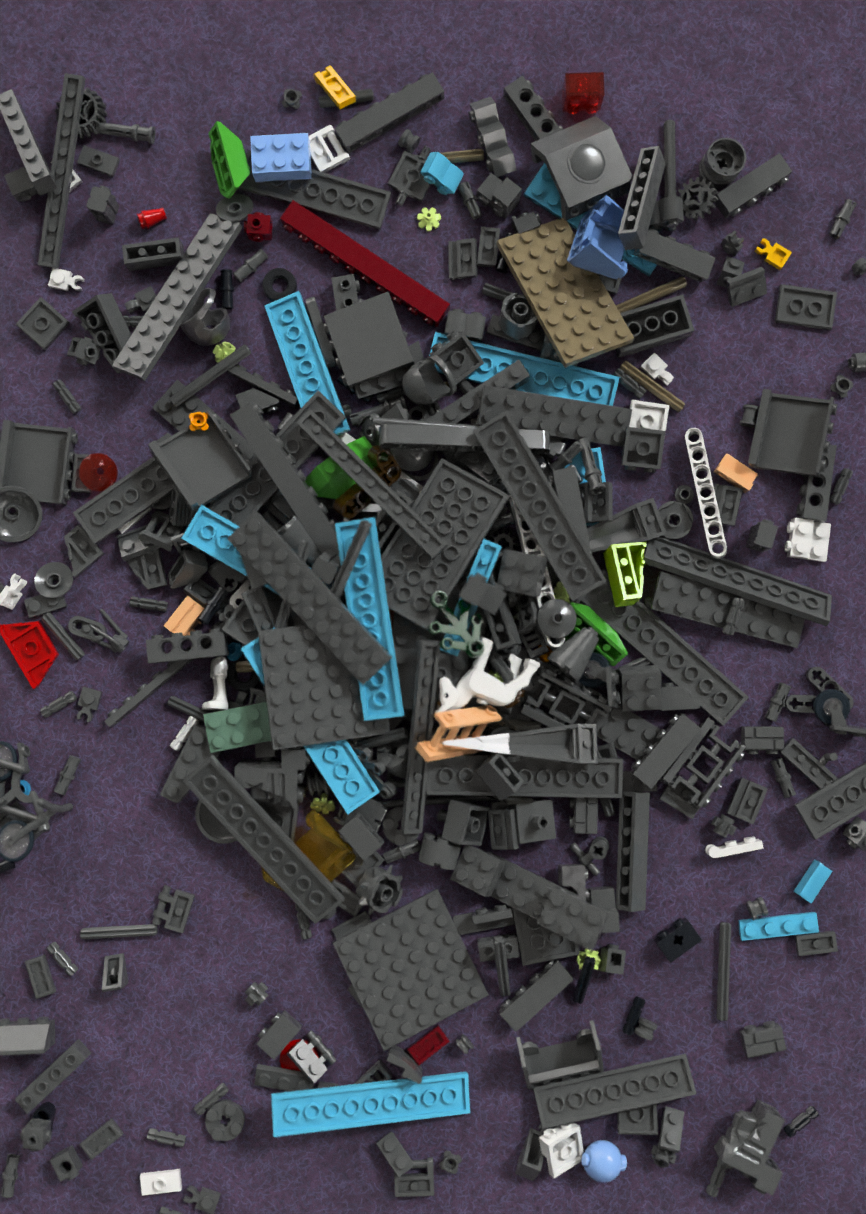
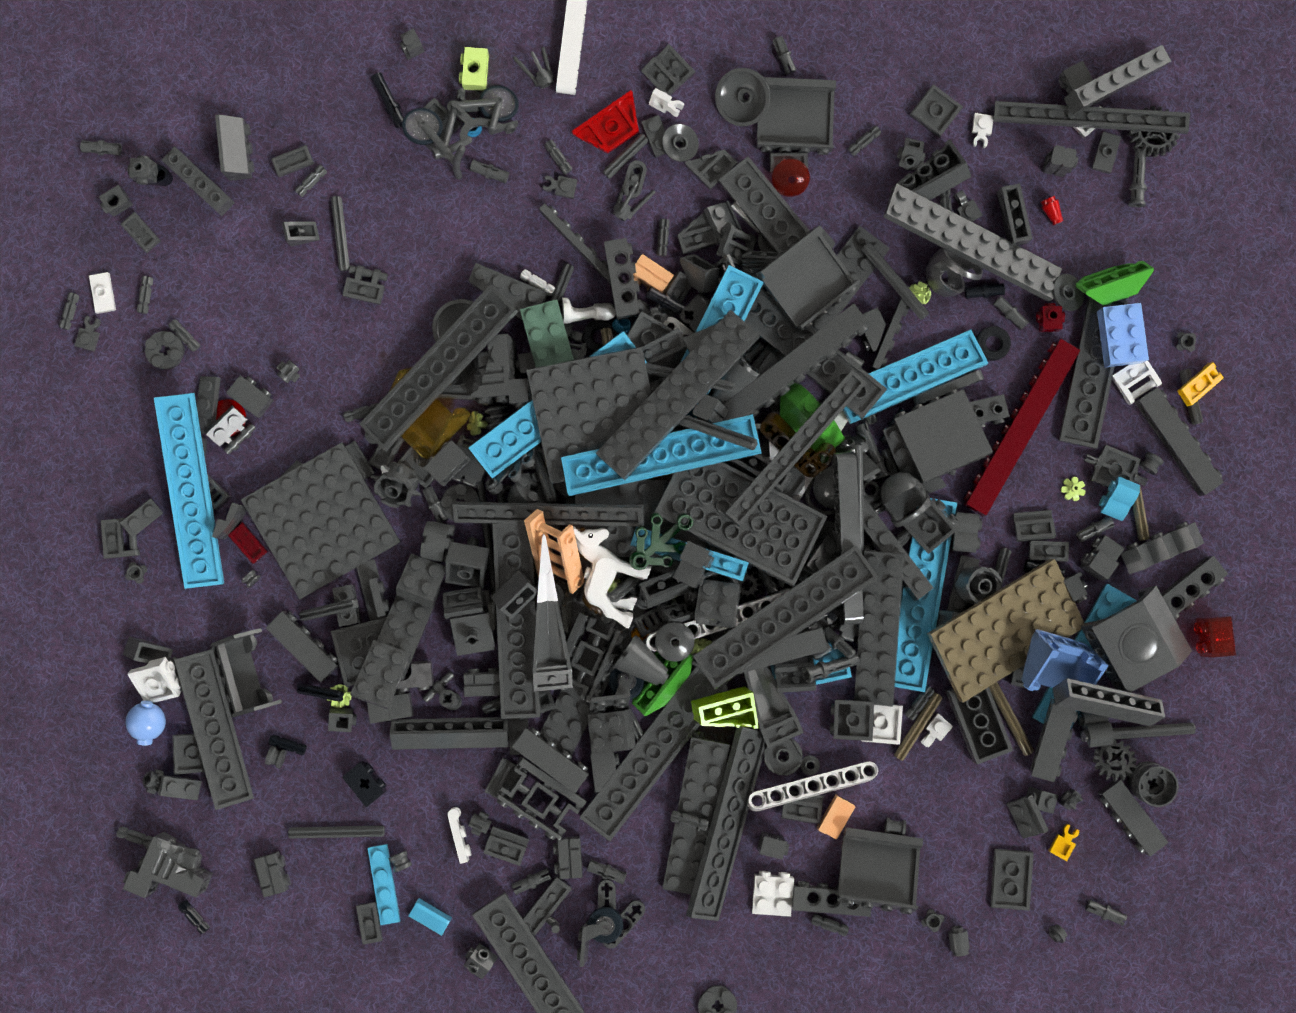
camera: 75 degrees right, 0 degrees up
(198, 416) = (850, 268): light orange plate -> none

